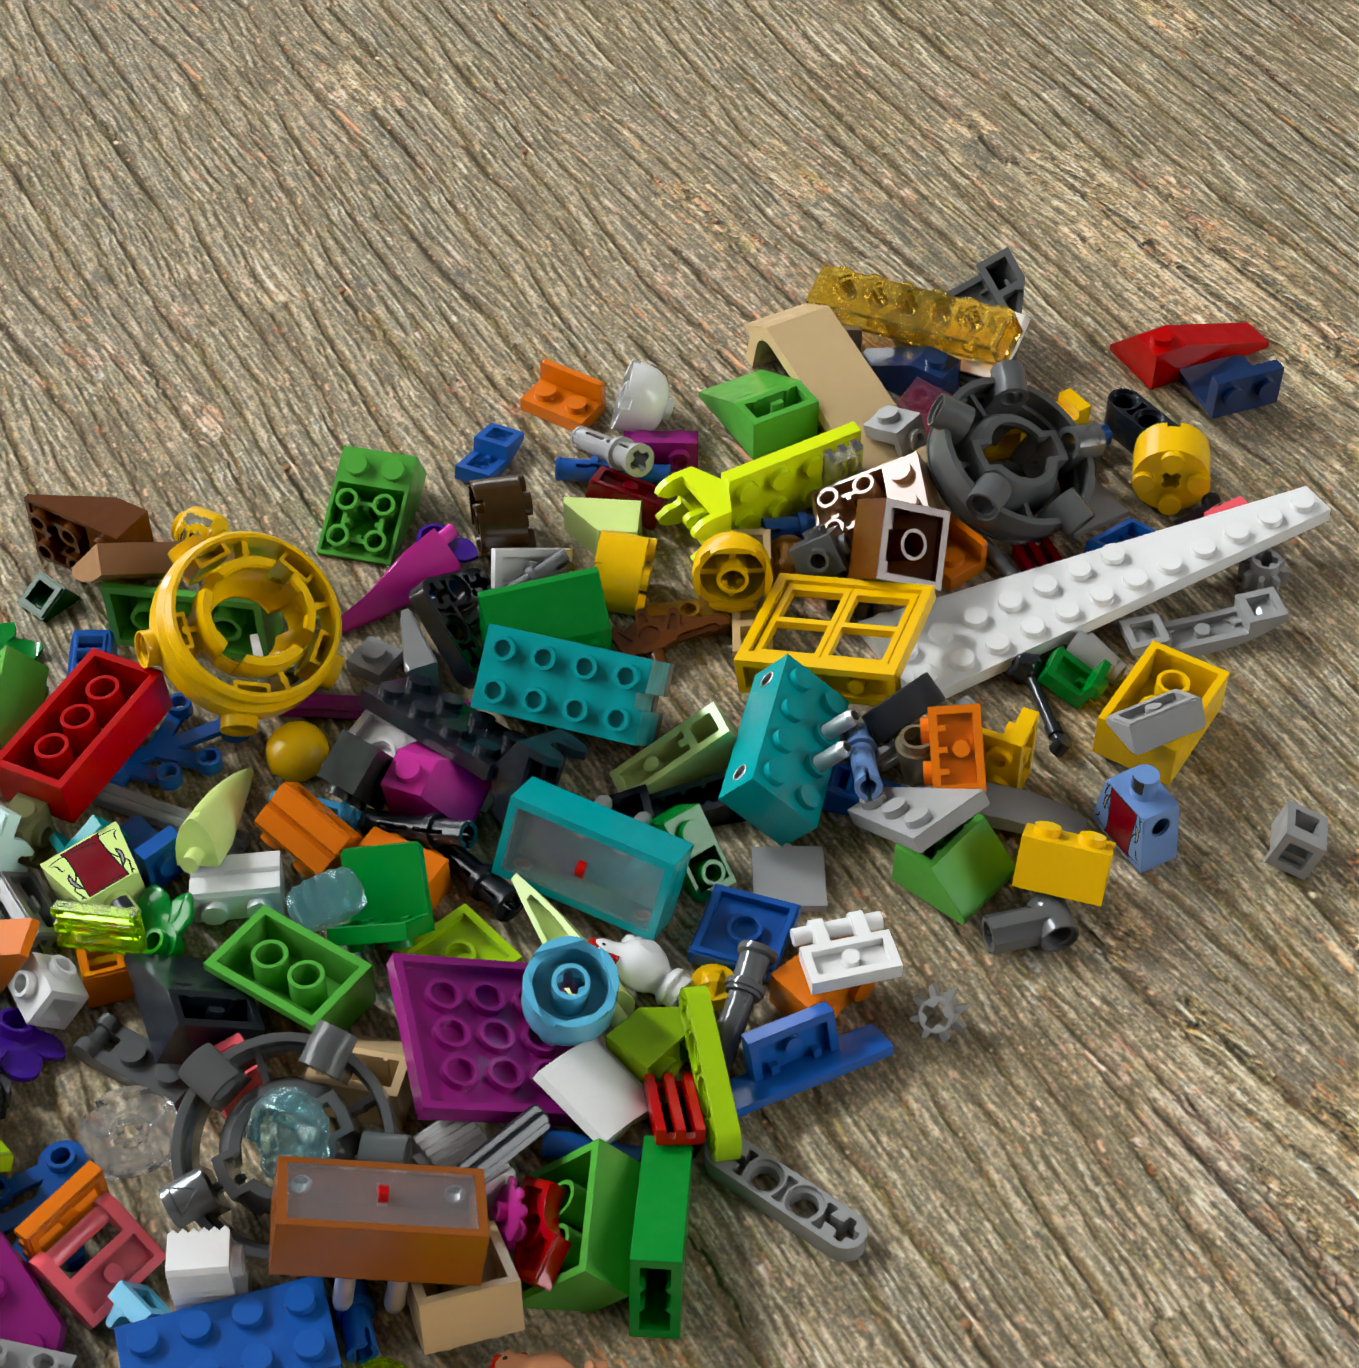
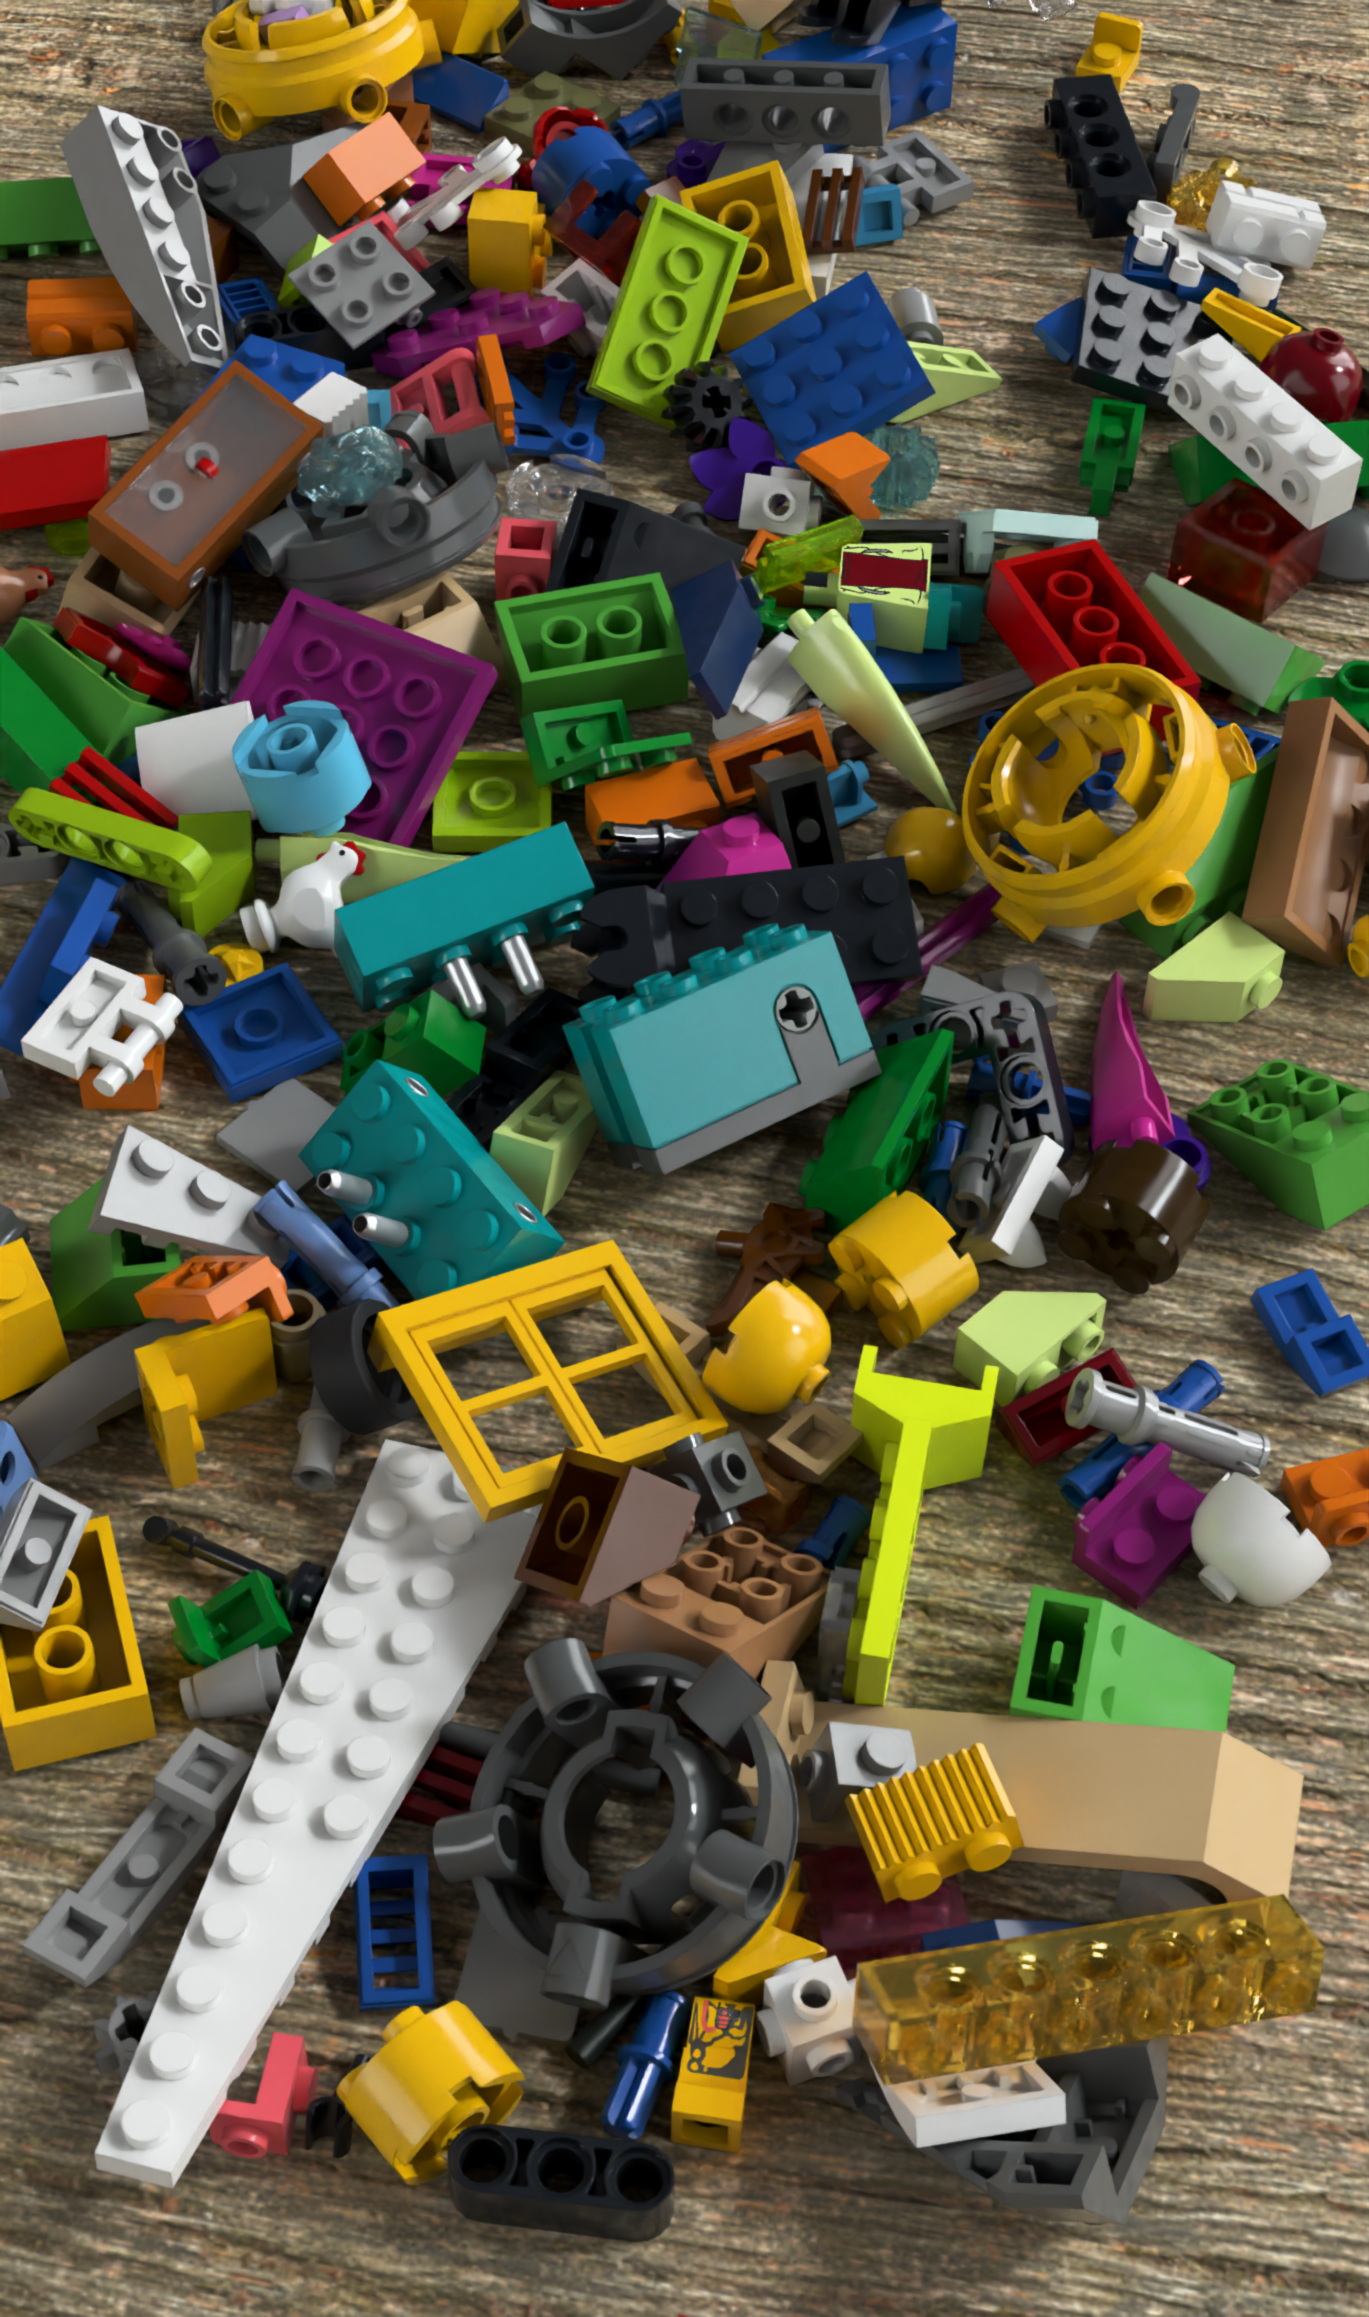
camera: 130 degrees right, 5 degrees up
(224, 905) = (719, 631): none -> dark blue slope
(326, 899) = (646, 697): clear light blue gear -> none
(898, 382) = (935, 1824): none -> yellow brick

